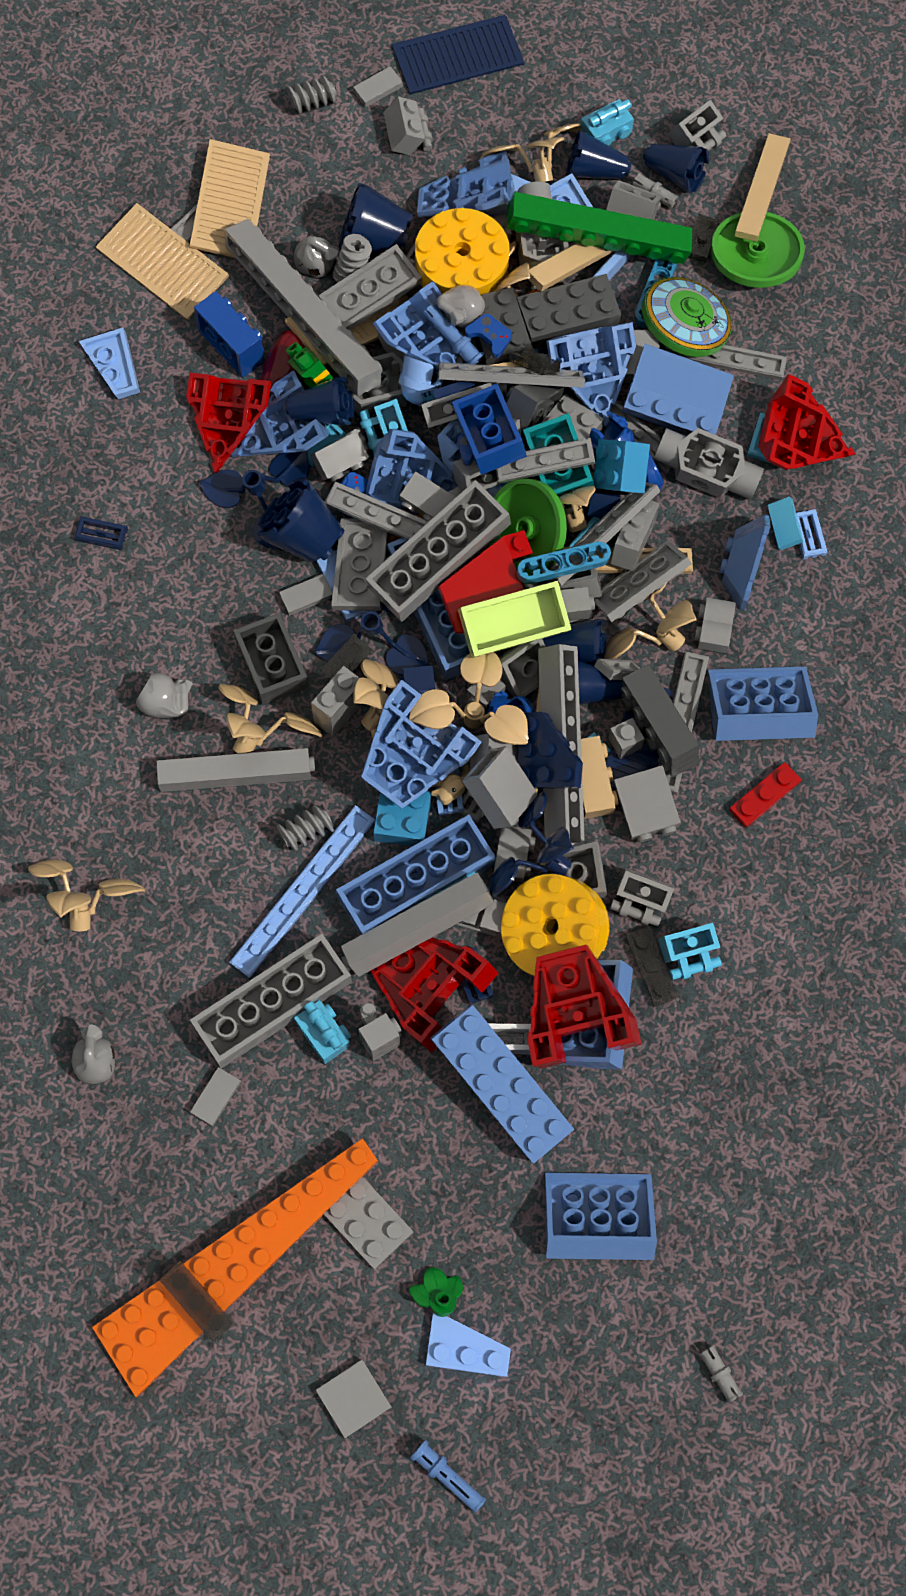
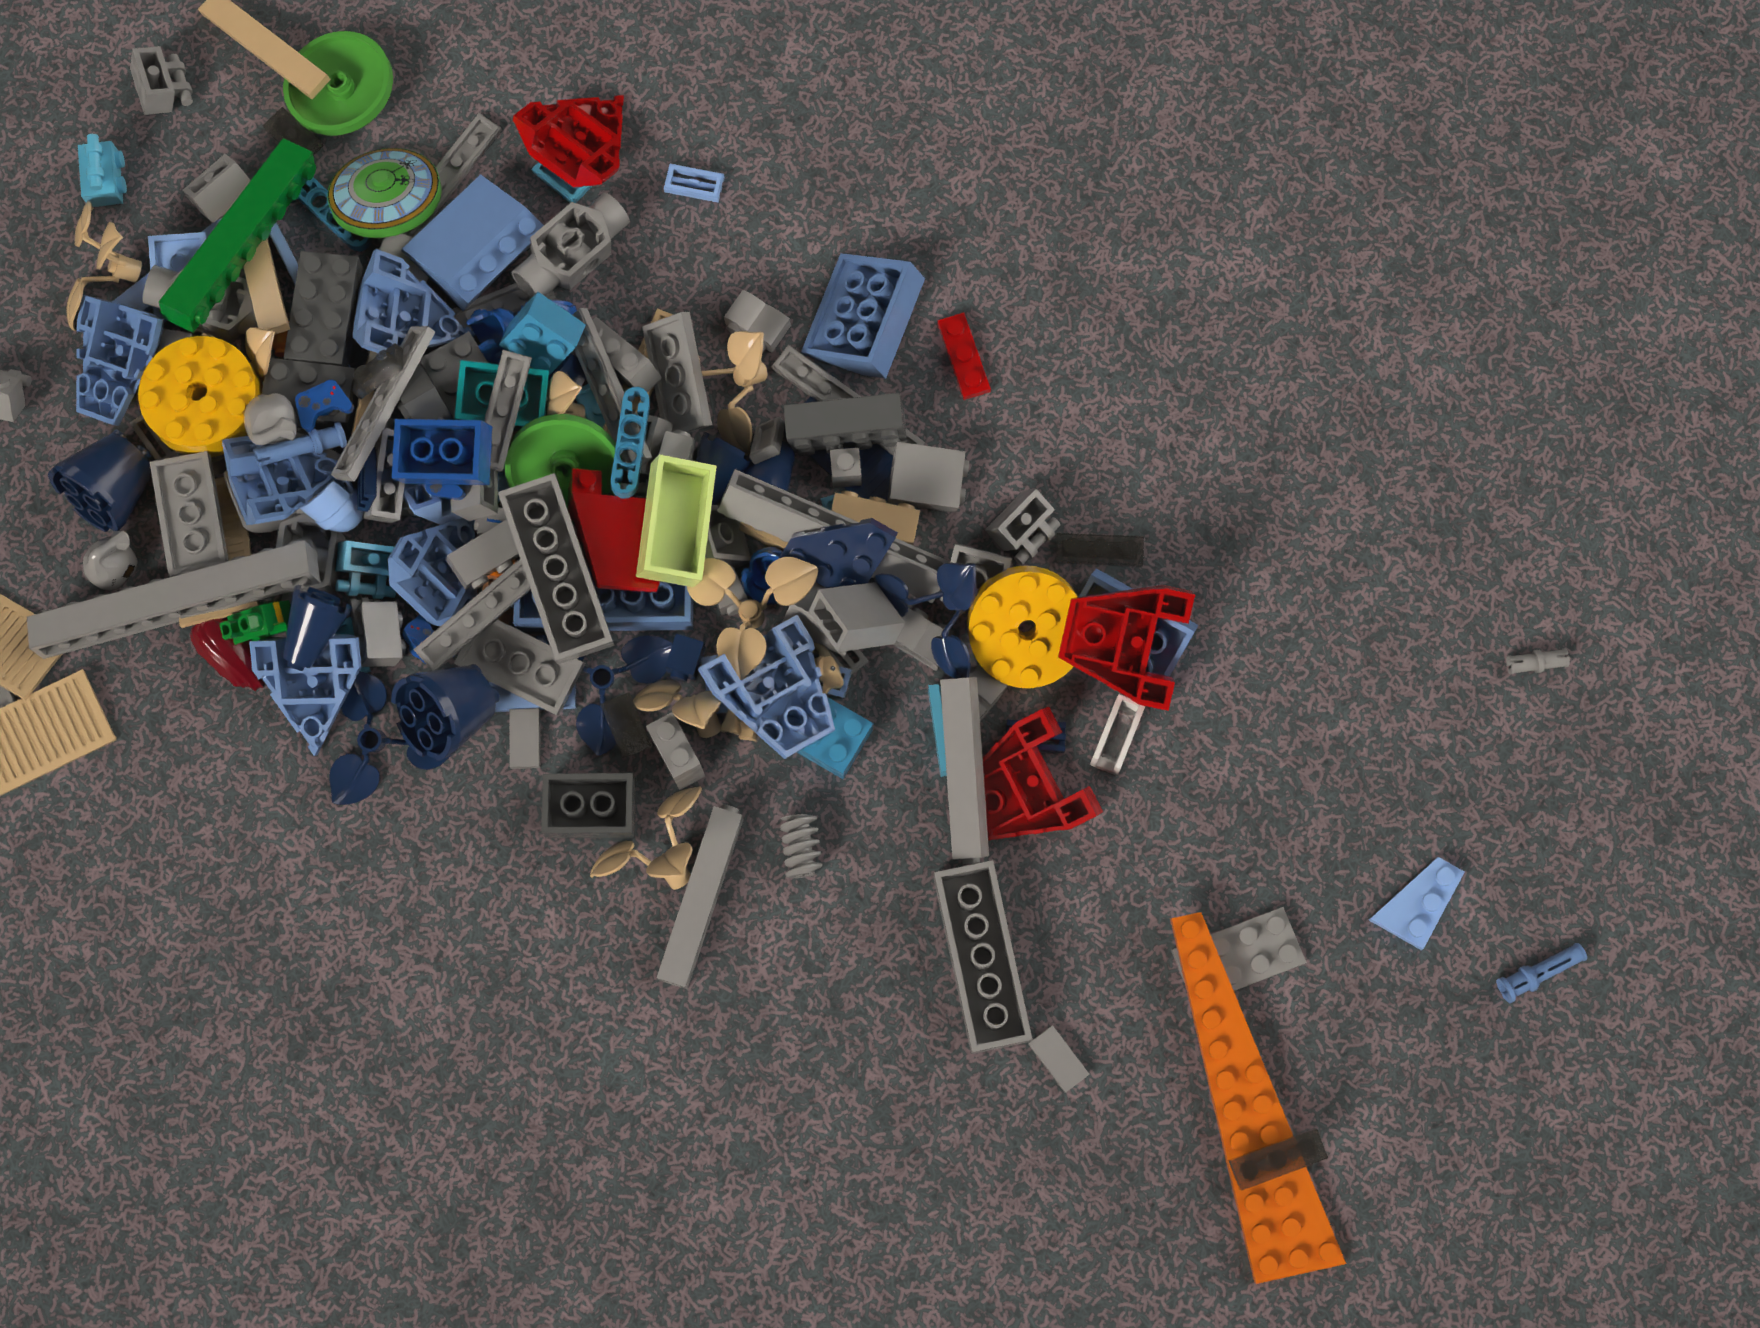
camera: 65 degrees left, 5 degrees up
(77, 903) = (795, 1132): tan plant -> none
(93, 1057) = (966, 1175): light grey piece -> none
(99, 541) = (319, 954): dark blue tile -> none
(114, 361) = (130, 844): light blue wing -> none
(164, 697) = (580, 943): light grey piece -> none
(225, 411) = (262, 737): red wedge -> none
(229, 333) = (165, 696): blue brick -> none
(302, 892) = (869, 878): light blue tile -> none
(322, 1031) = (1036, 915): medium azure brick -> none
(353, 255) = (140, 520): light grey piece -> none
(353, 1398) = (1429, 1036): light grey tile -> none
(378, 1034) = (1067, 857): light grey brick -> none
(415, 875) = (908, 749): medium blue brick -> none
(437, 1288) = (1349, 907): green plate -> none
(502, 1083) = (1170, 751): medium blue brick -> none
(596, 159) = (139, 204): dark blue cone -> none
(599, 1216) = (1339, 711): medium blue slope -> none
(667, 197) = (207, 157): light grey pin -> none
(678, 164) = (189, 120): dark blue cone -> none
(689, 943) = (1095, 501): medium azure brick -> none
(744, 558) = (698, 254): medium blue wedge -> none
(785, 523) = (672, 200): medium azure tile -> none

